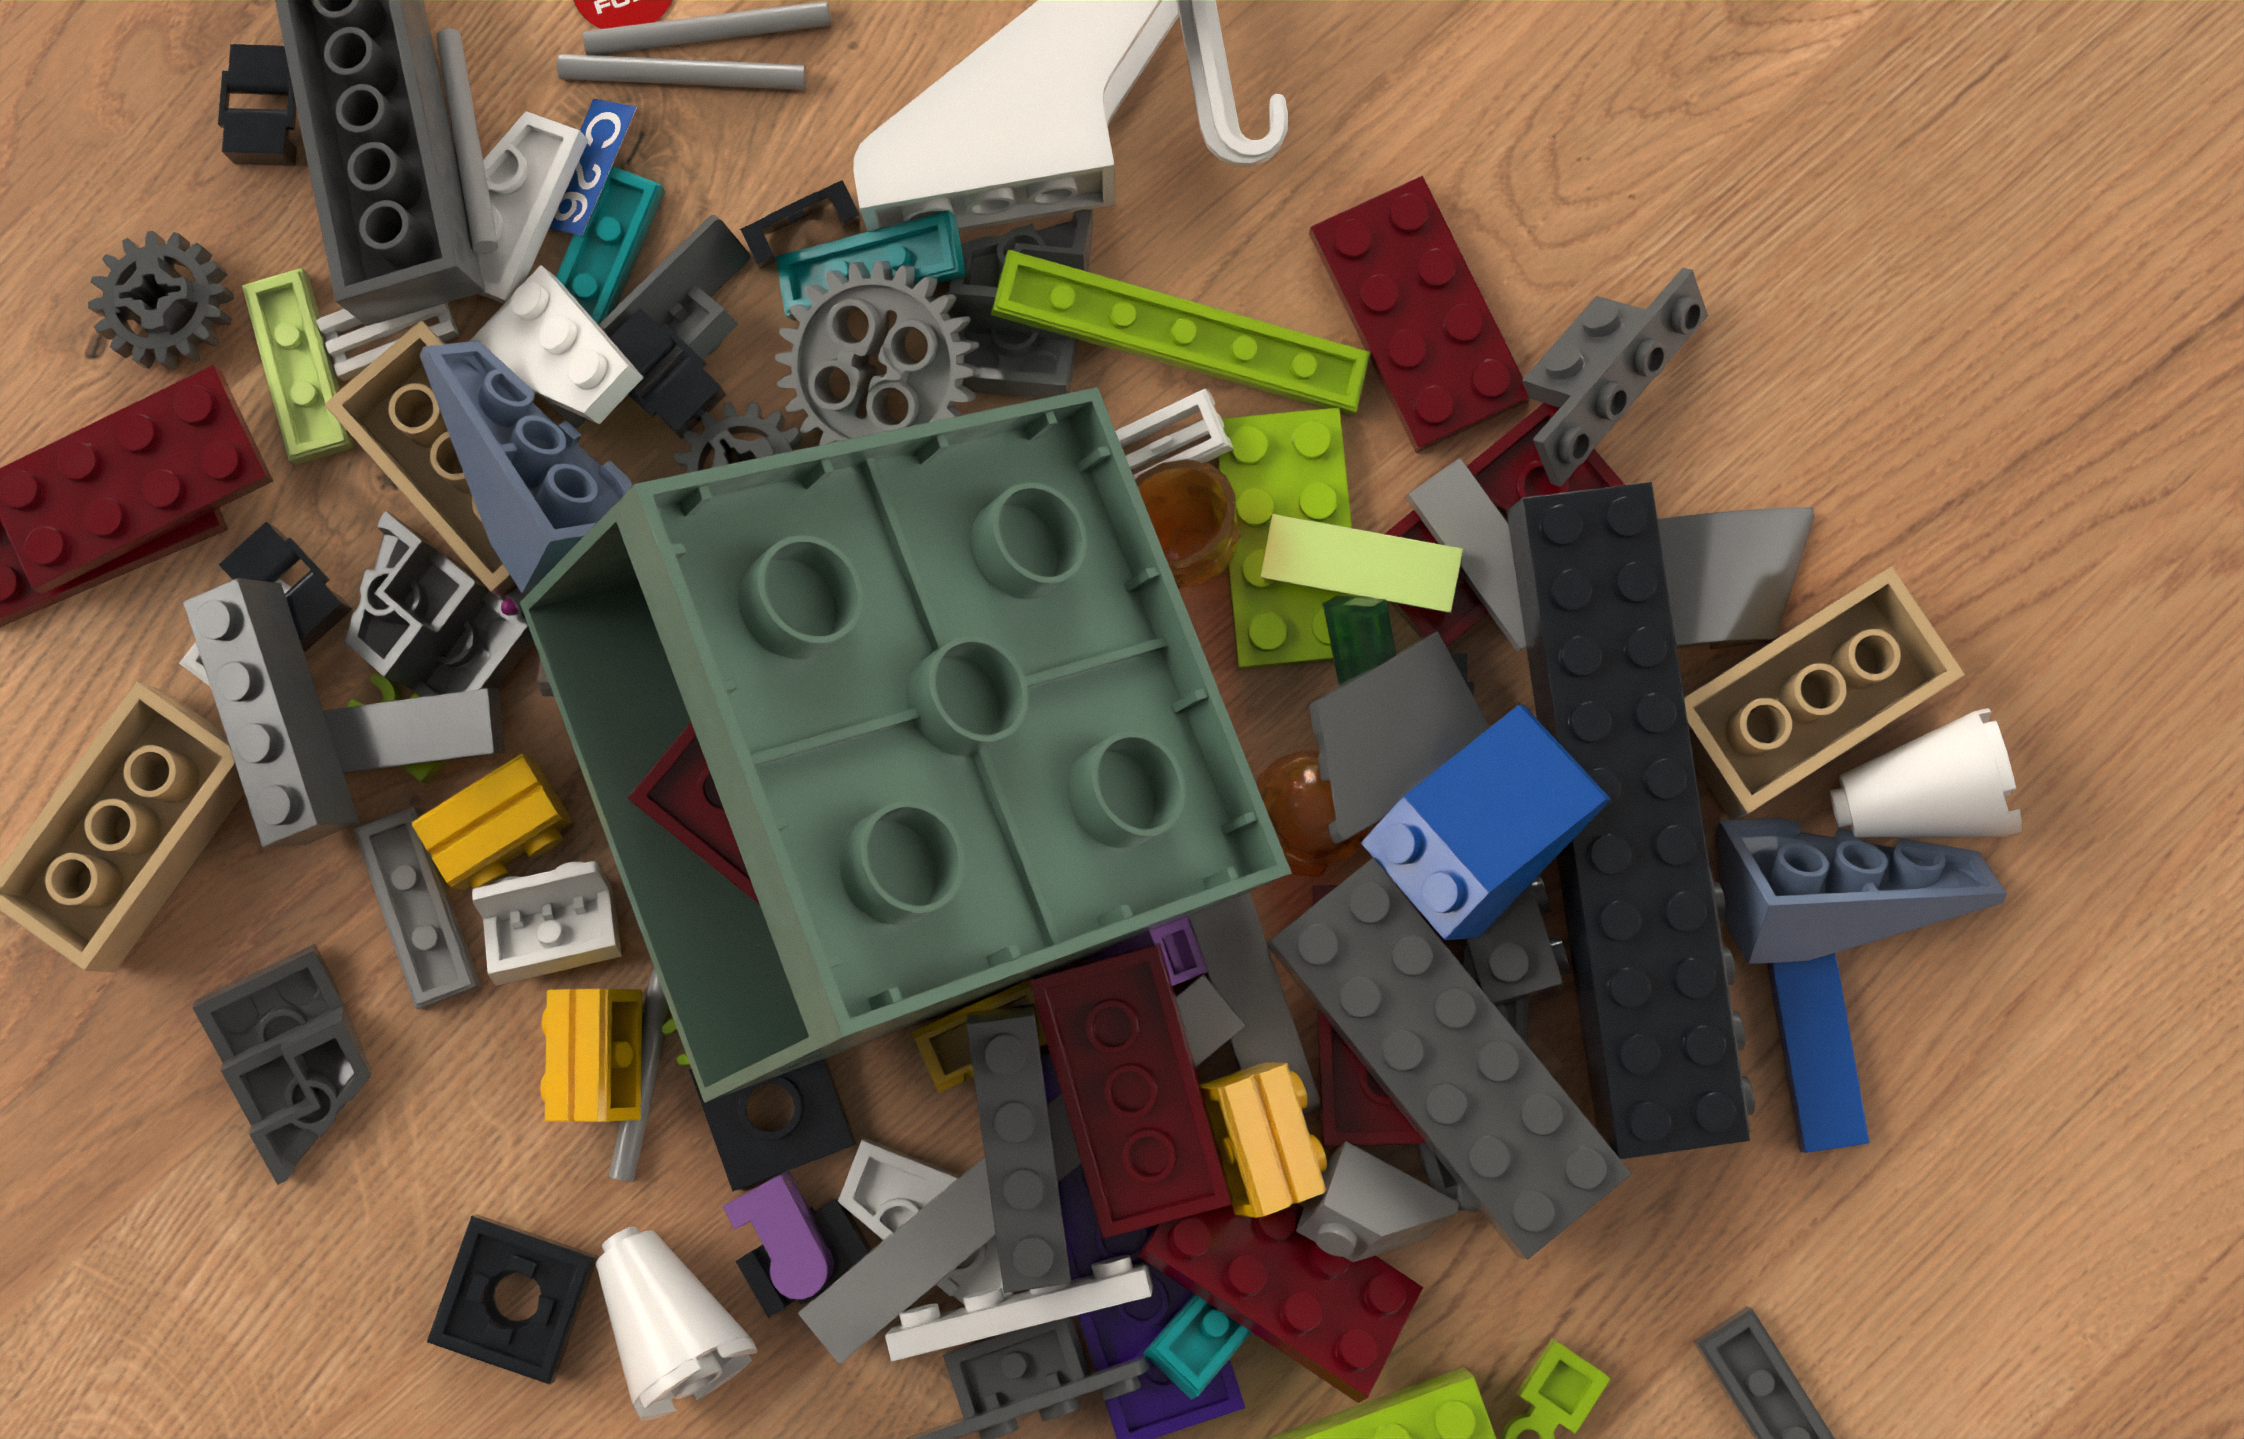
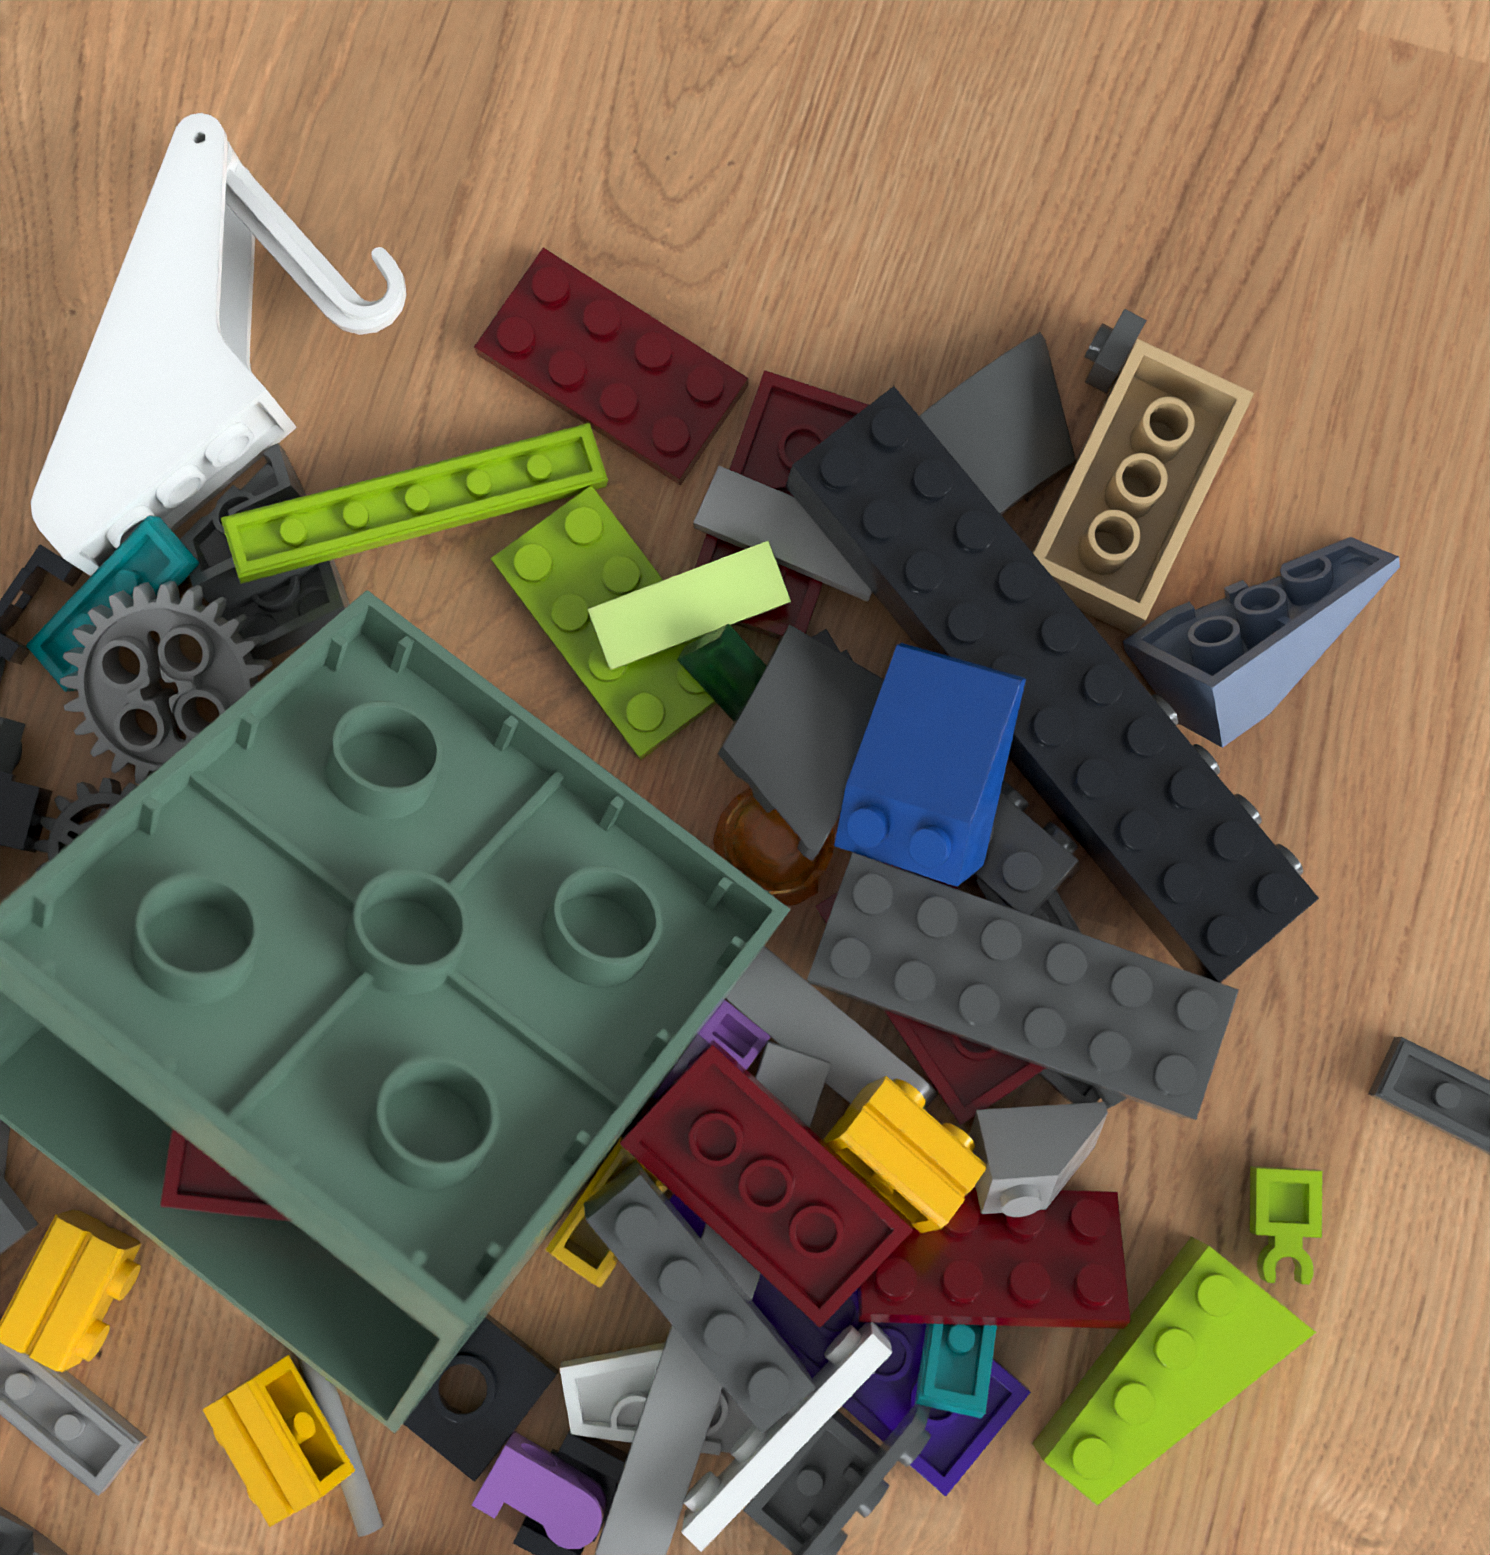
camera: 30 degrees left, 0 degrees up
(548, 921) = (169, 1347): white bracket -> none
(1192, 518) = (520, 655): clear orange helmet -> none
(1204, 452) = (485, 610): white tile -> none
(1604, 368) = (795, 315): dark grey bracket -> none
(1818, 1054) = (1325, 788): blue tile -> none
(1866, 560) = (1111, 348): none -> dark grey plate
(1933, 786) = (1284, 502): white cone -> none

